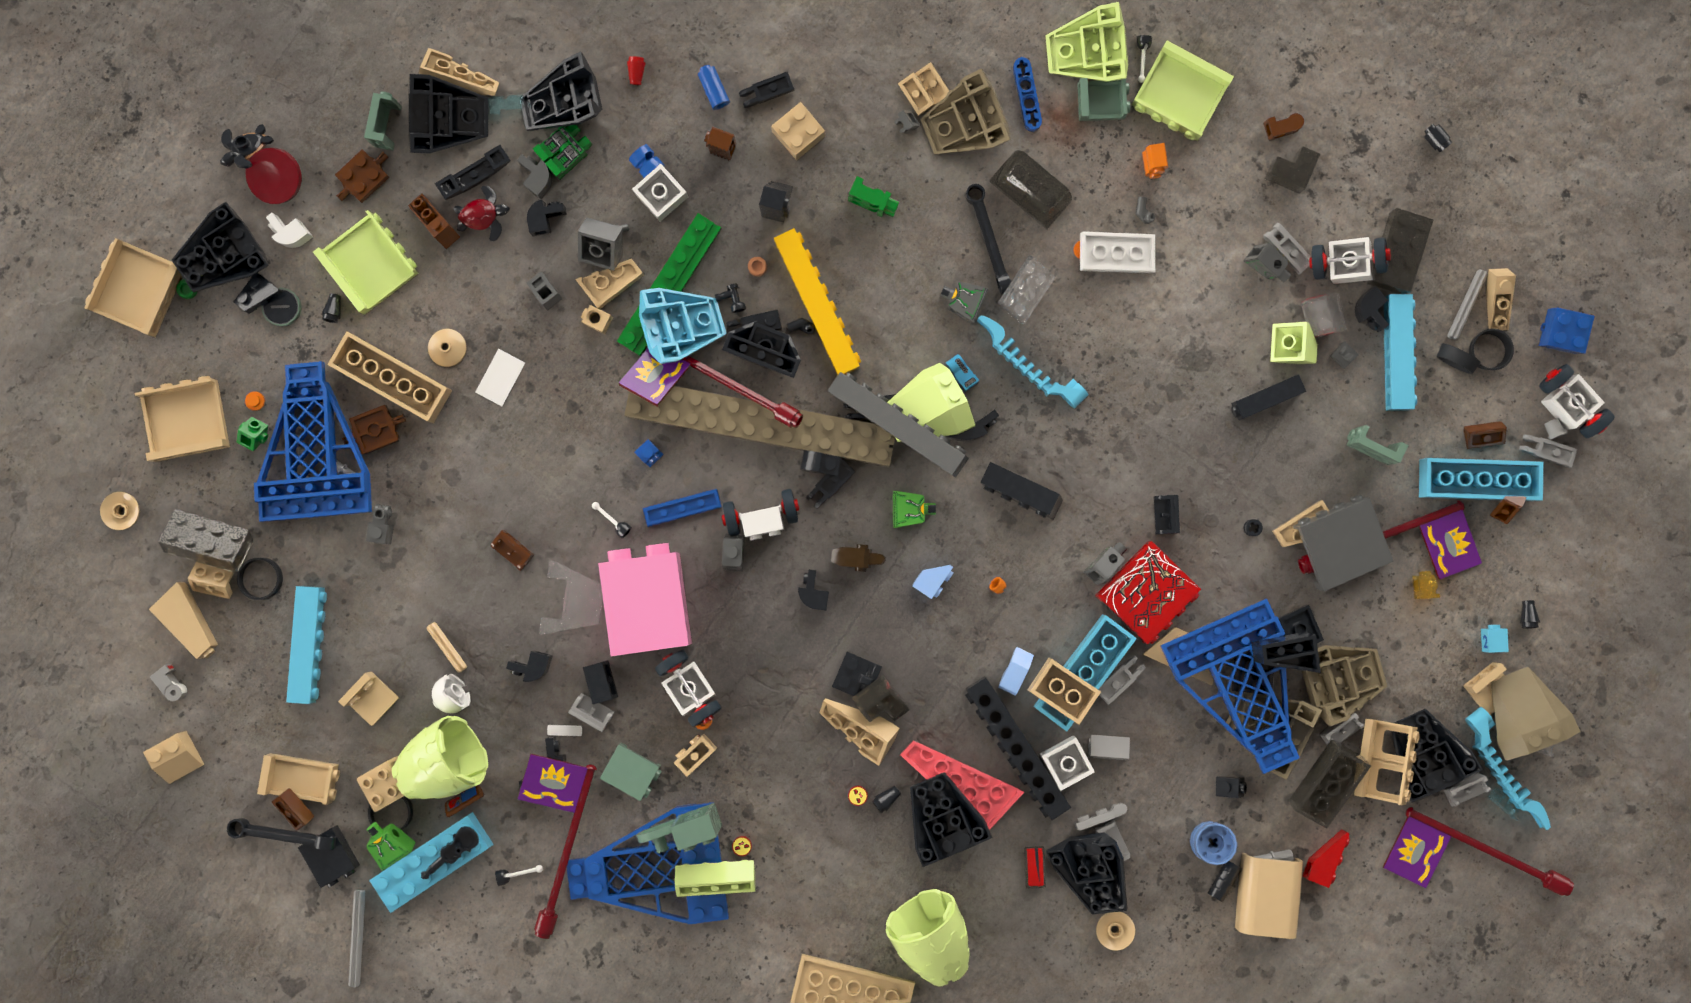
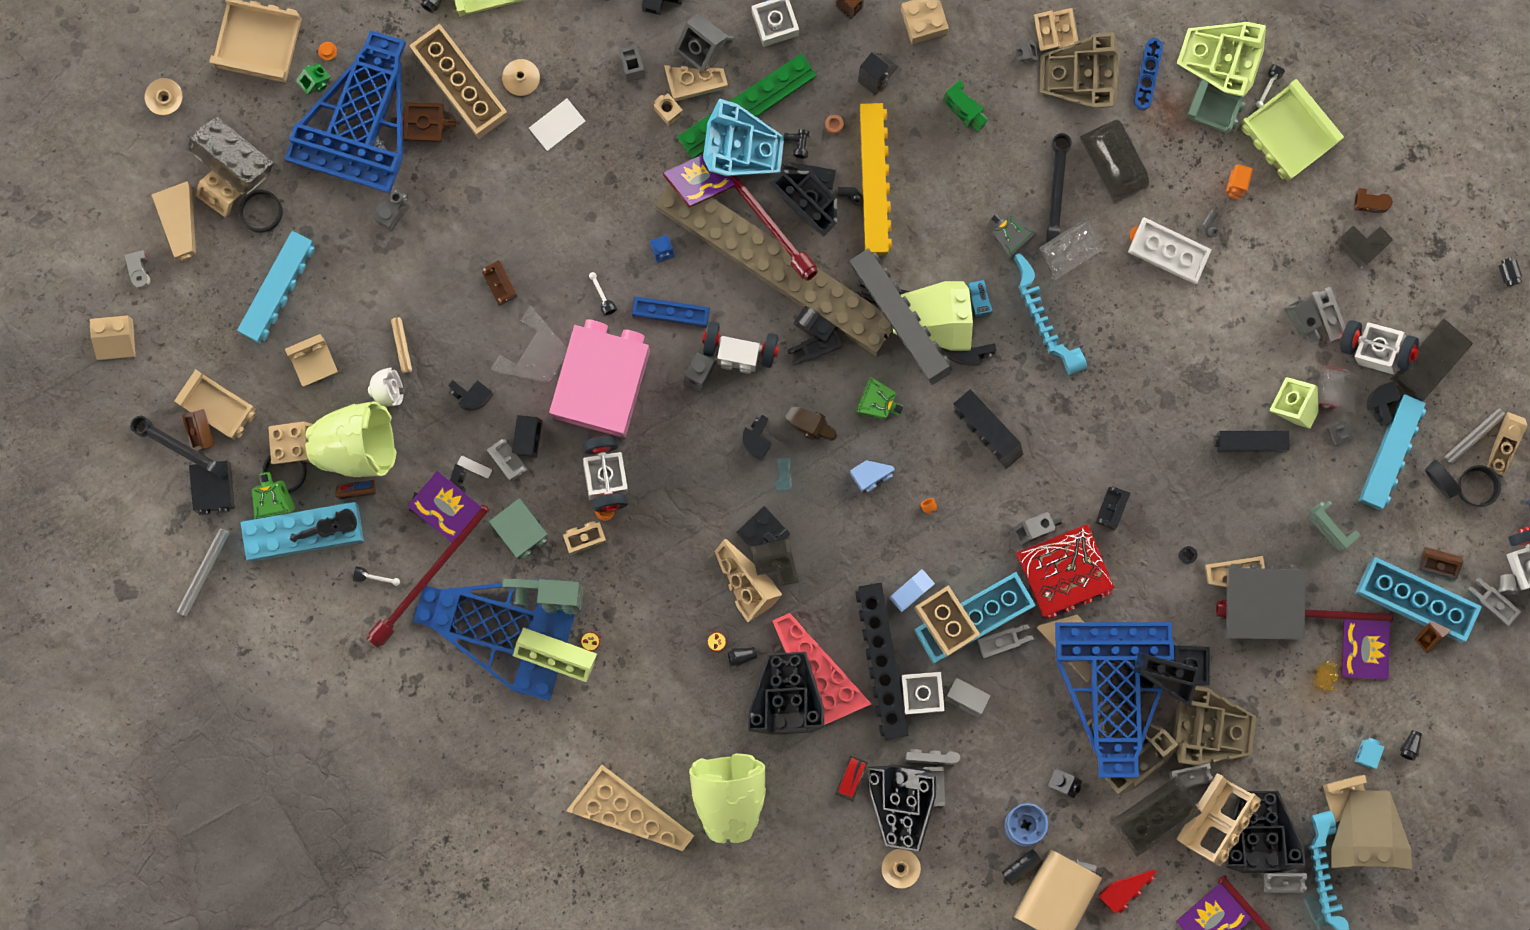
camera: 25 degrees right, 5 degrees down
(855, 618) = (785, 479): none -> clear light blue piece

